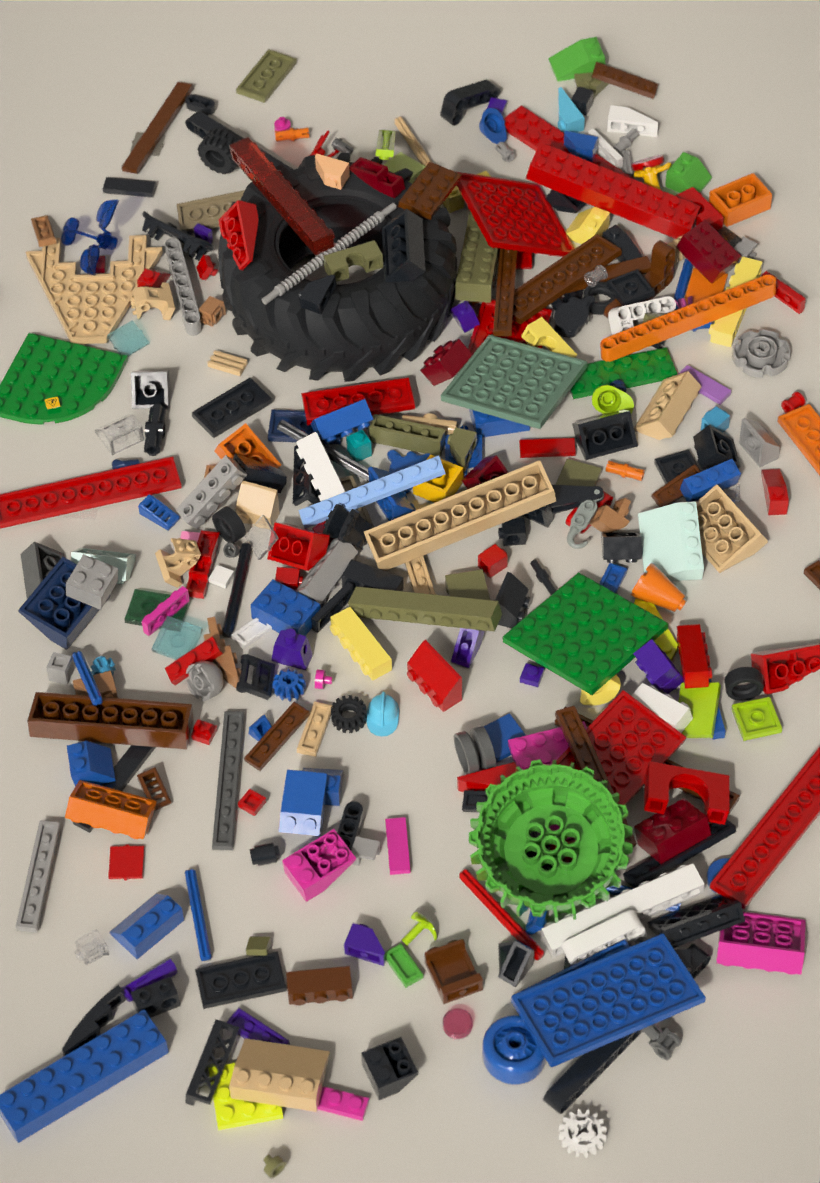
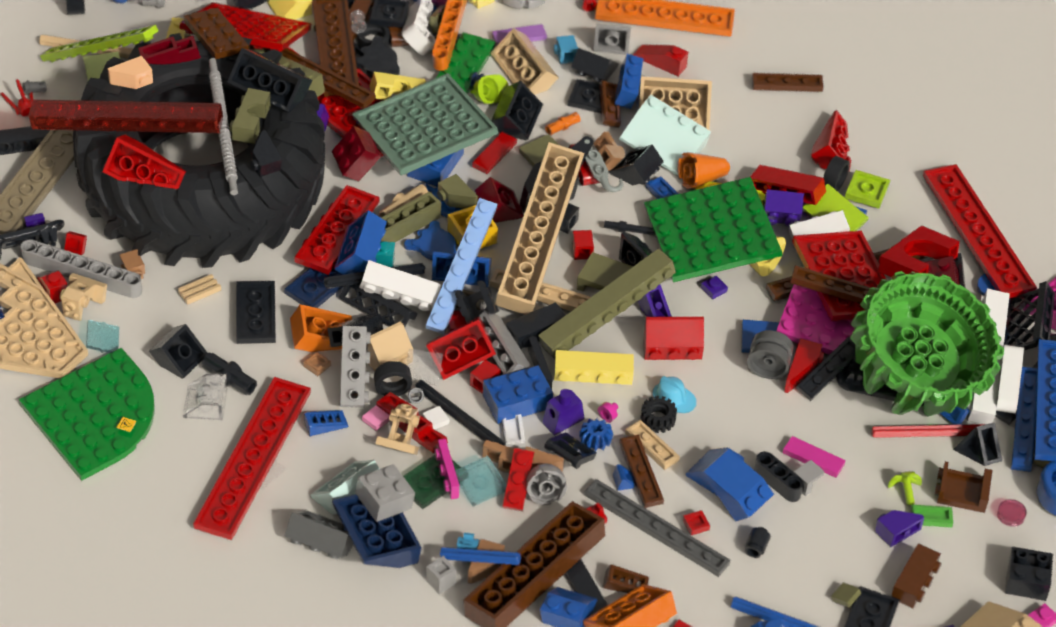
camera: 60 degrees left, 5 degrees down
(124, 463) = (244, 420): dark blue arm -> none
(318, 864) = (800, 511): dark pink slope -> none

